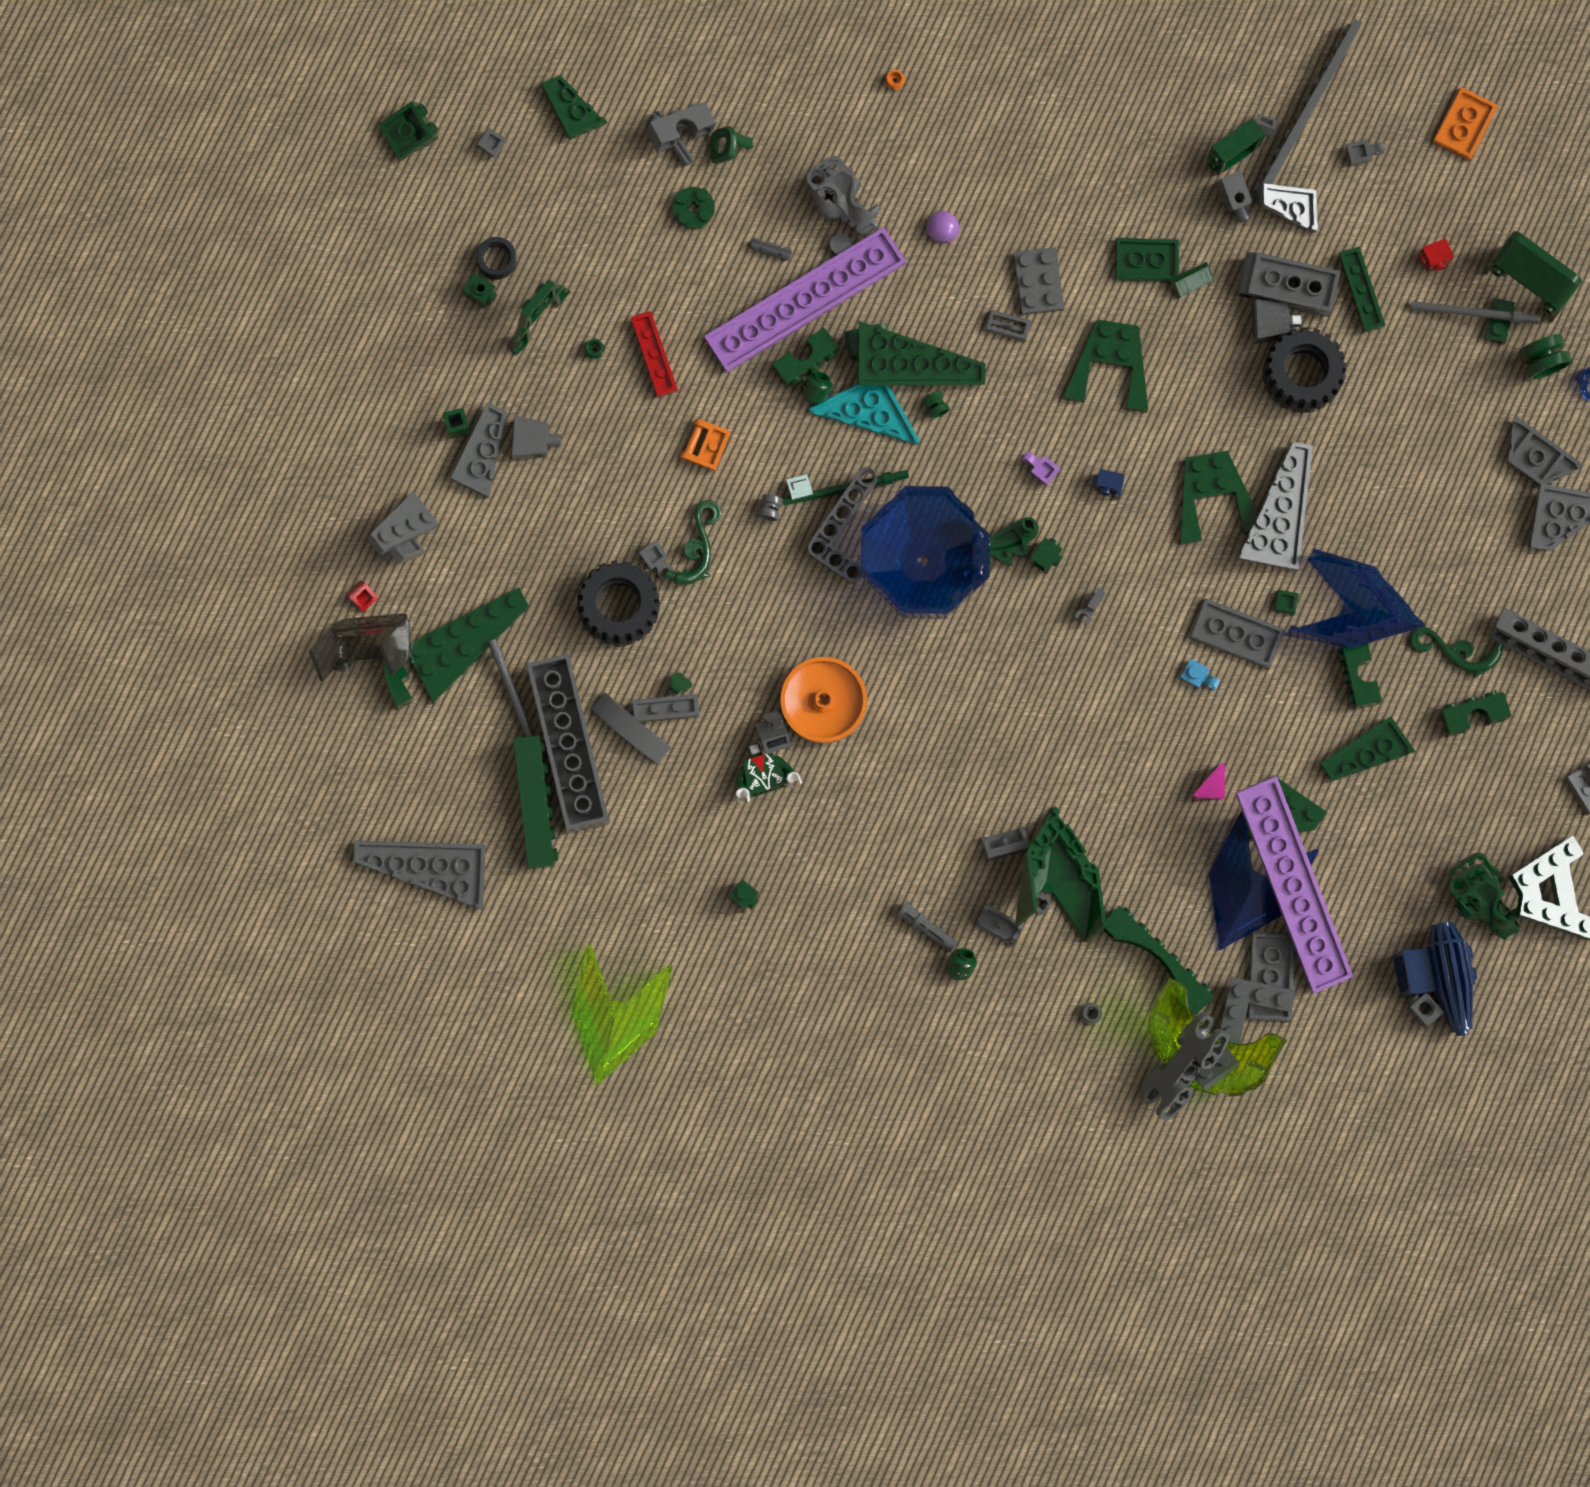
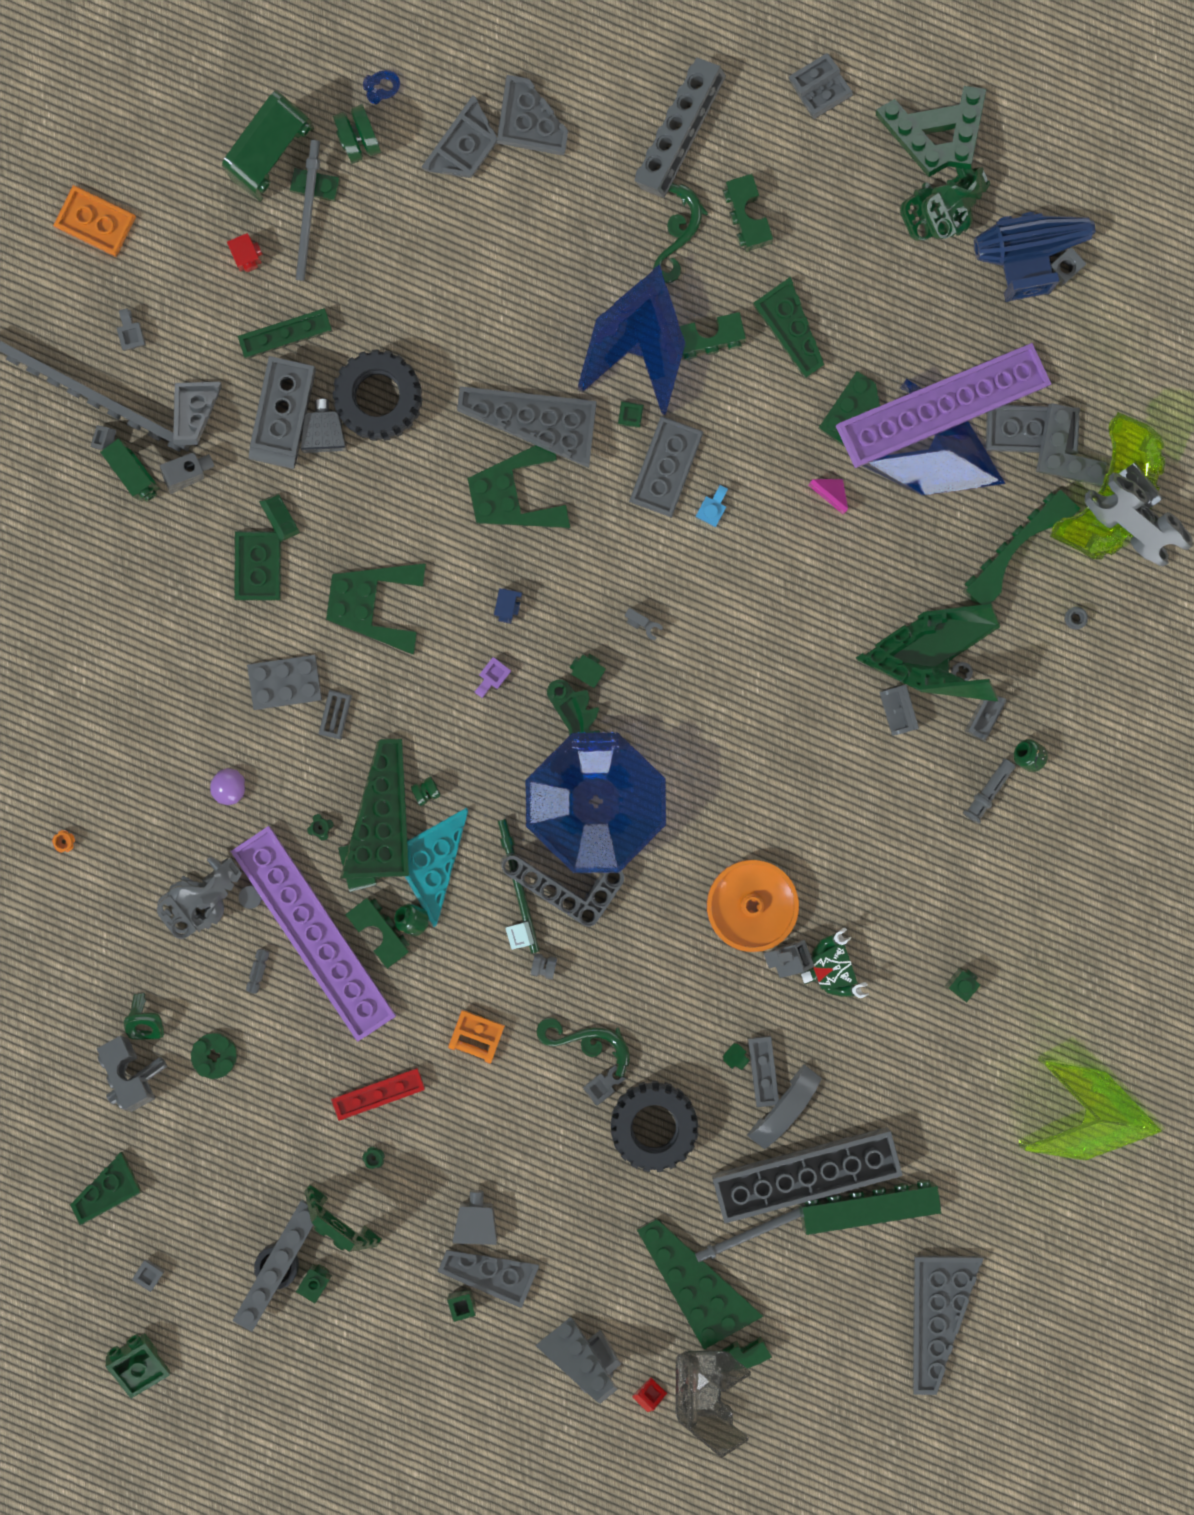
camera: 80 degrees left, 10 degrees up
(495, 253) = (275, 1268): none -> dark grey plate
(904, 303) = (314, 830): none -> dark green plate

